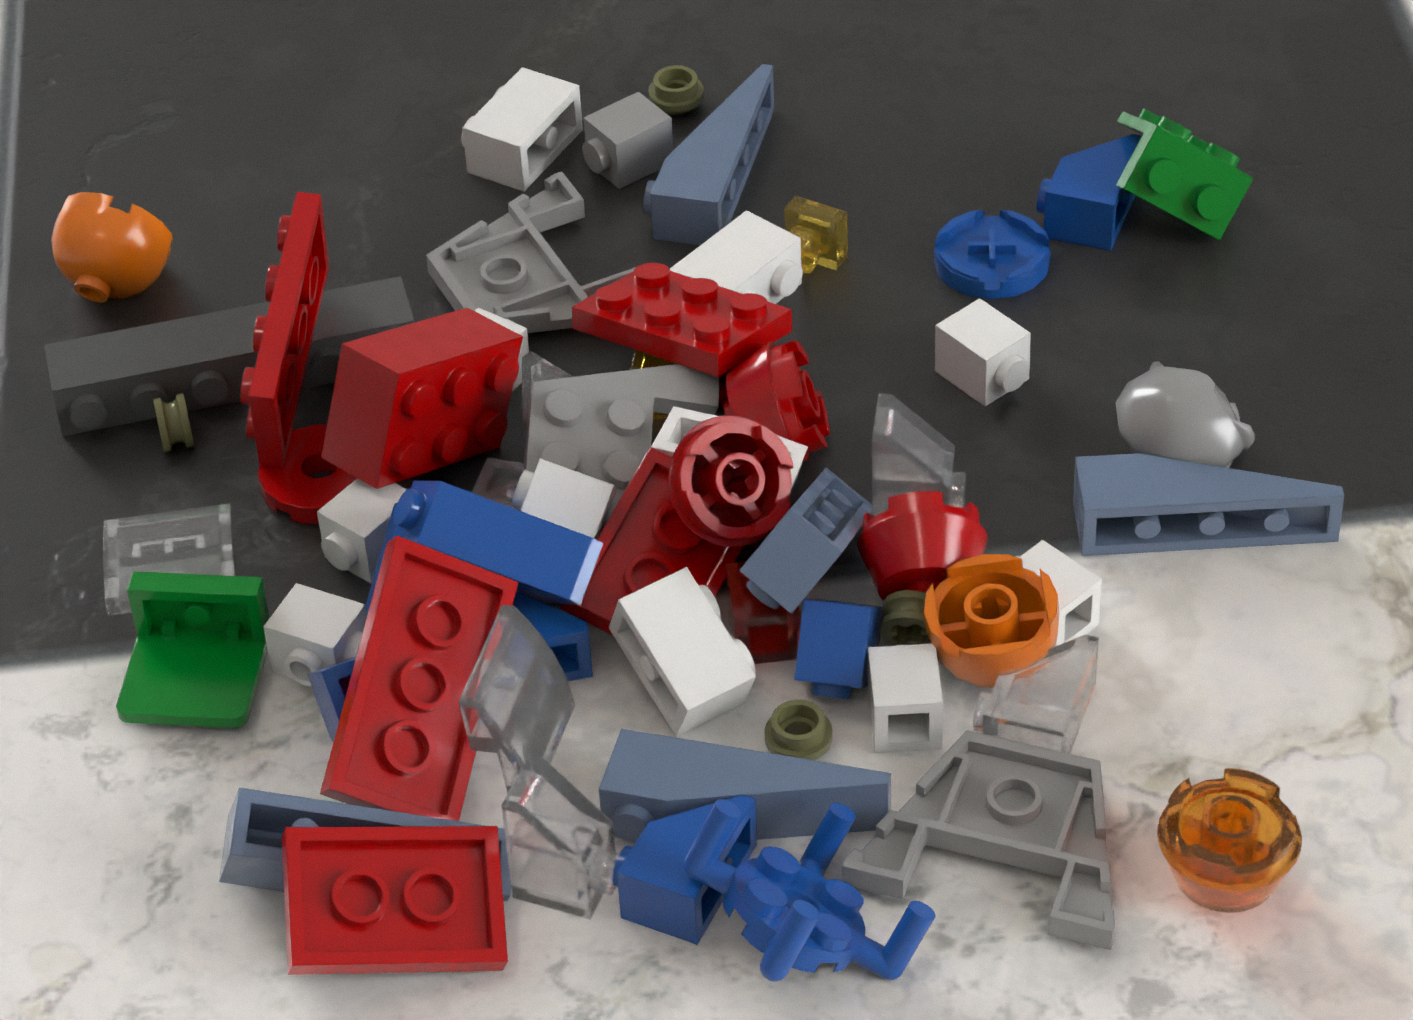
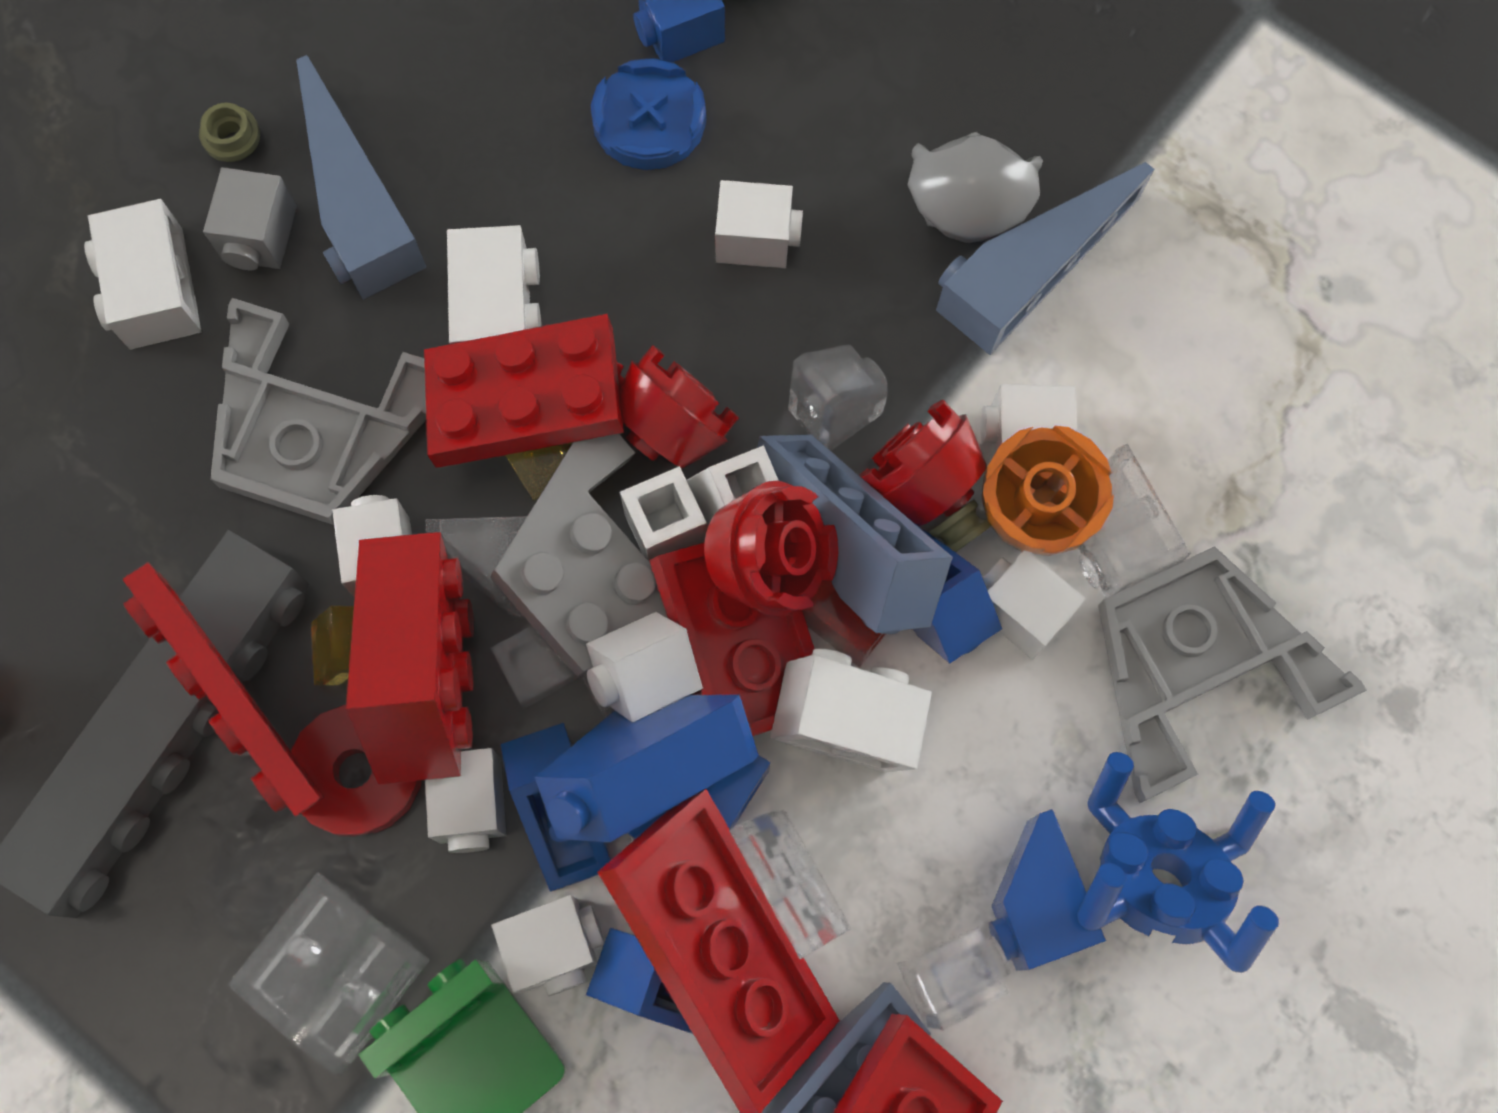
camera: 50 degrees left, 30 degrees up
(173, 422) = (177, 834): olive bush -> none
(669, 775) = (979, 826): sand blue slope -> none
(798, 730) = (993, 685): olive plate -> none
(821, 233) = (507, 201): clear yellow tile -> none
(1229, 840) = (1379, 548): clear orange cone -> none

